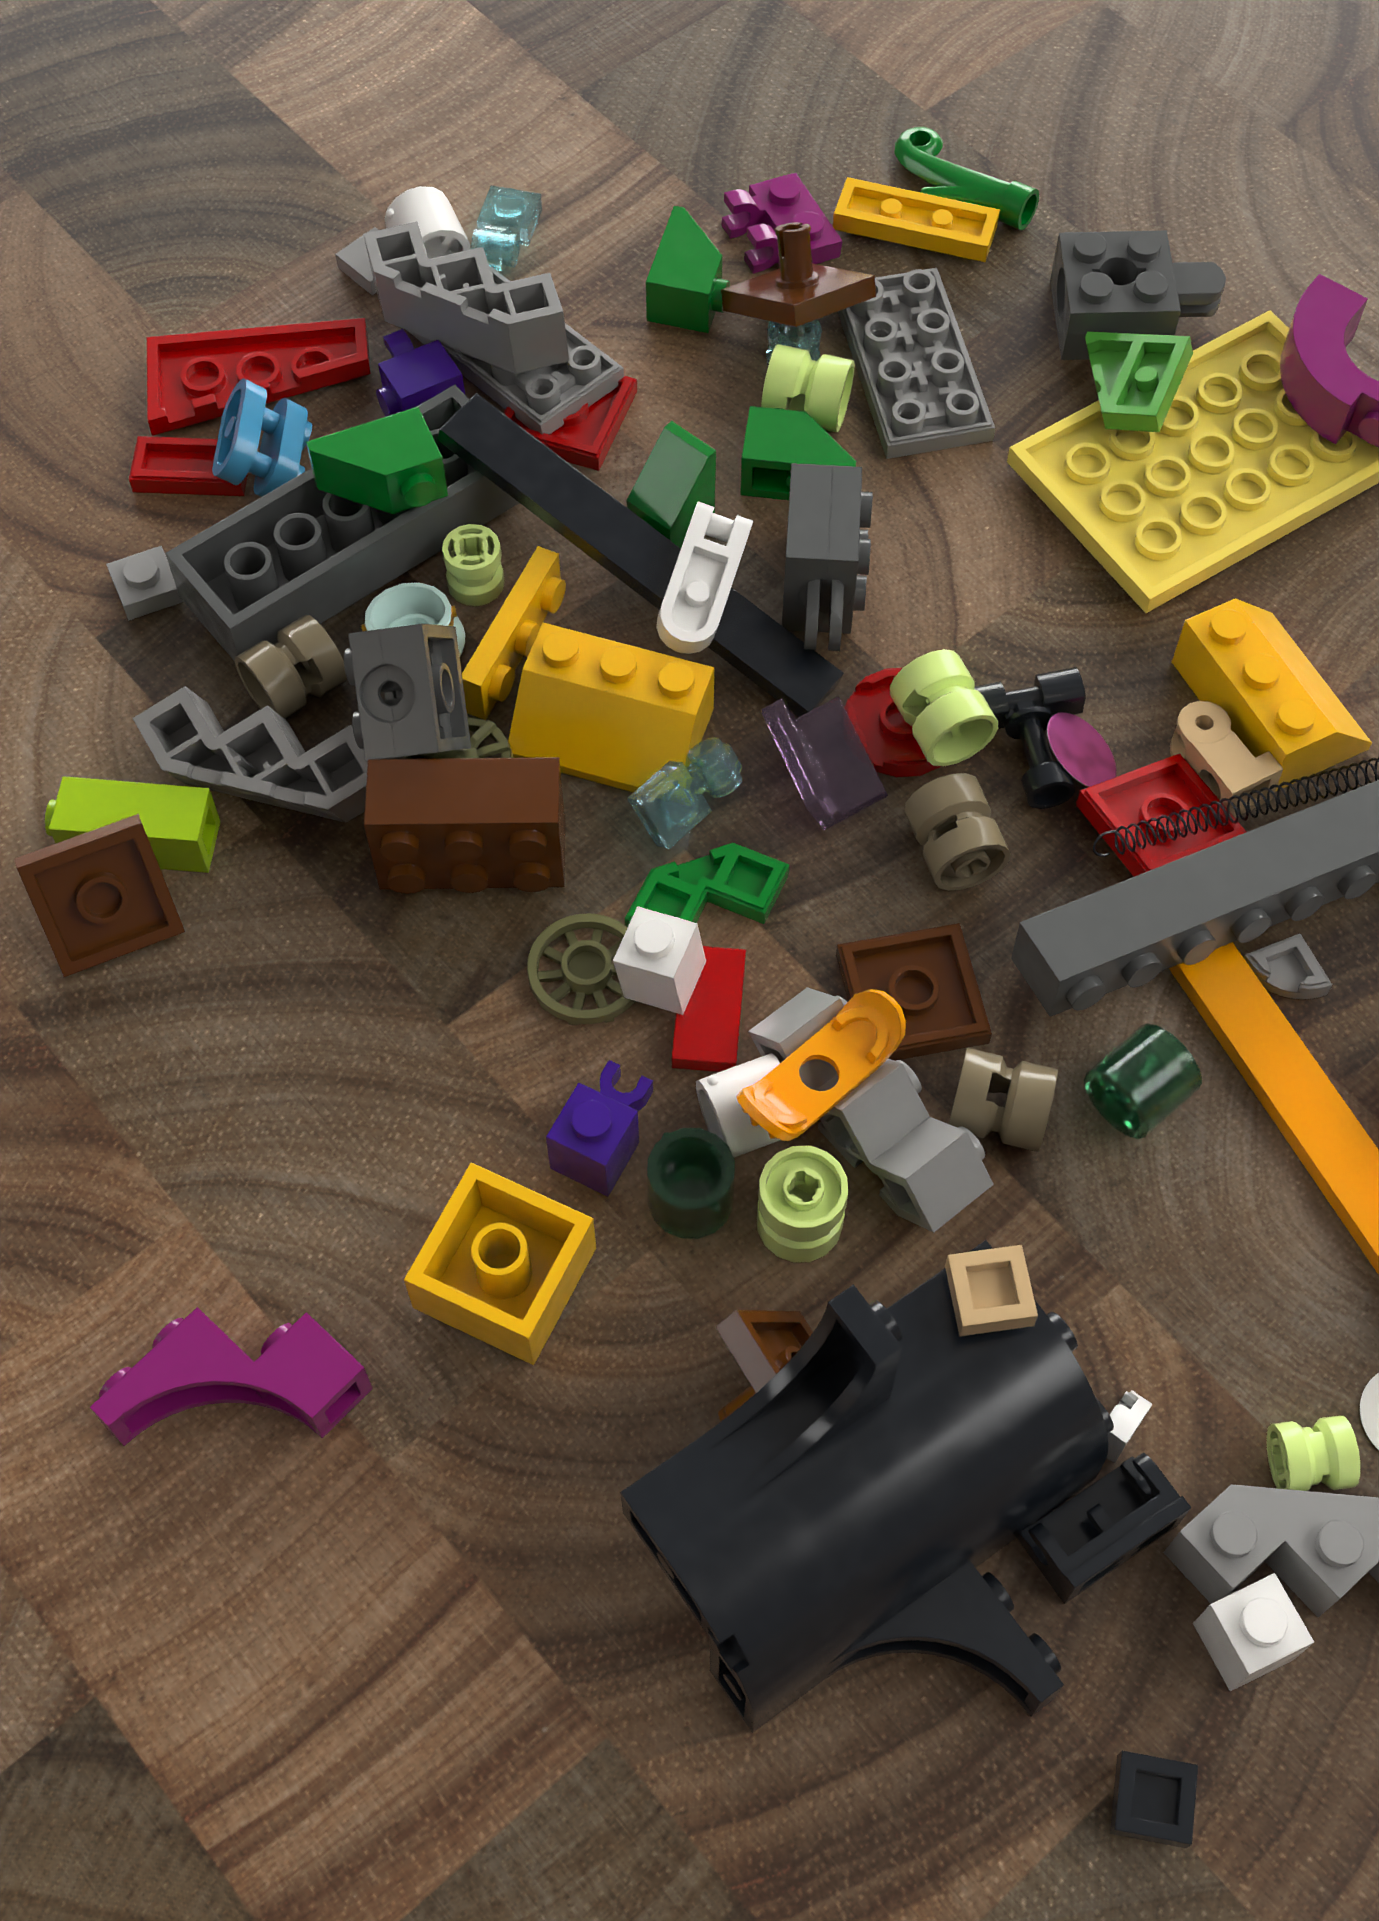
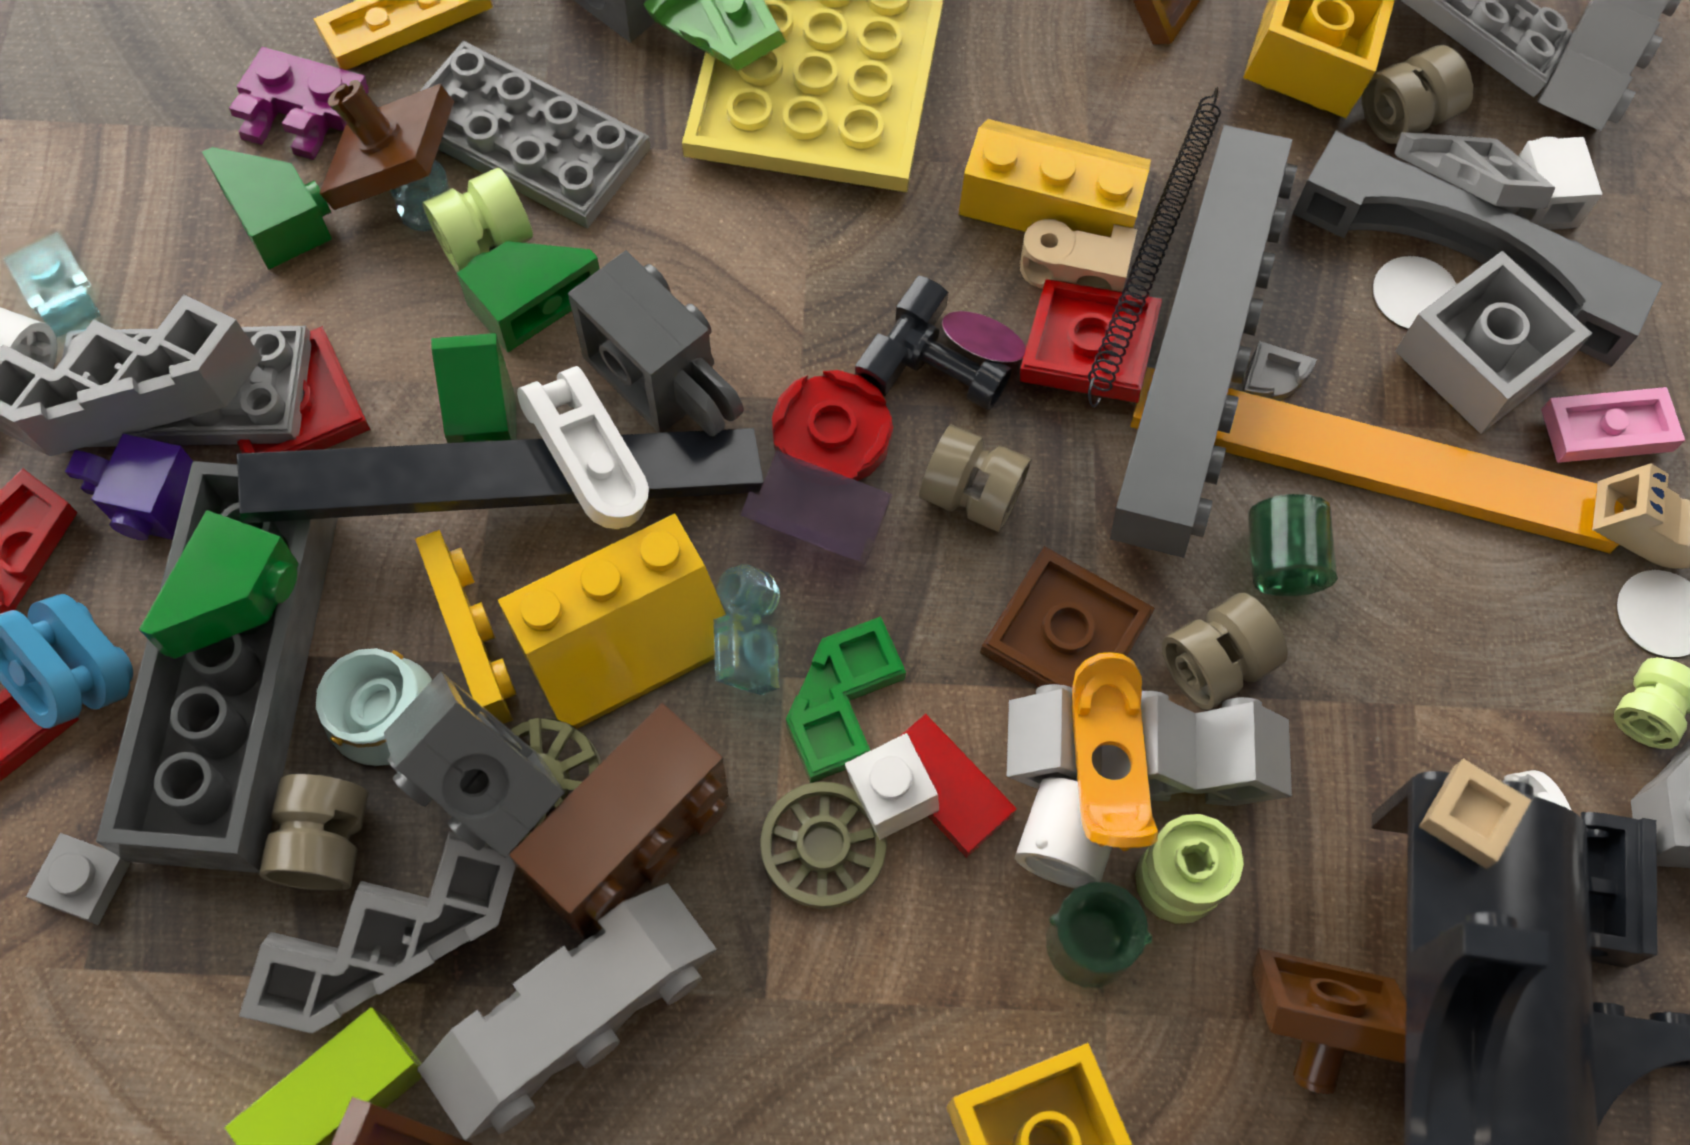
camera: 50 degrees left, 5 degrees up
(319, 900) = (566, 1012): none -> light grey brick
(473, 564) = (377, 611): yellowish green wheel -> none
(598, 1131) = (988, 966): dark purple brick -> none
(943, 707) = (872, 391): yellowish green wheel -> none

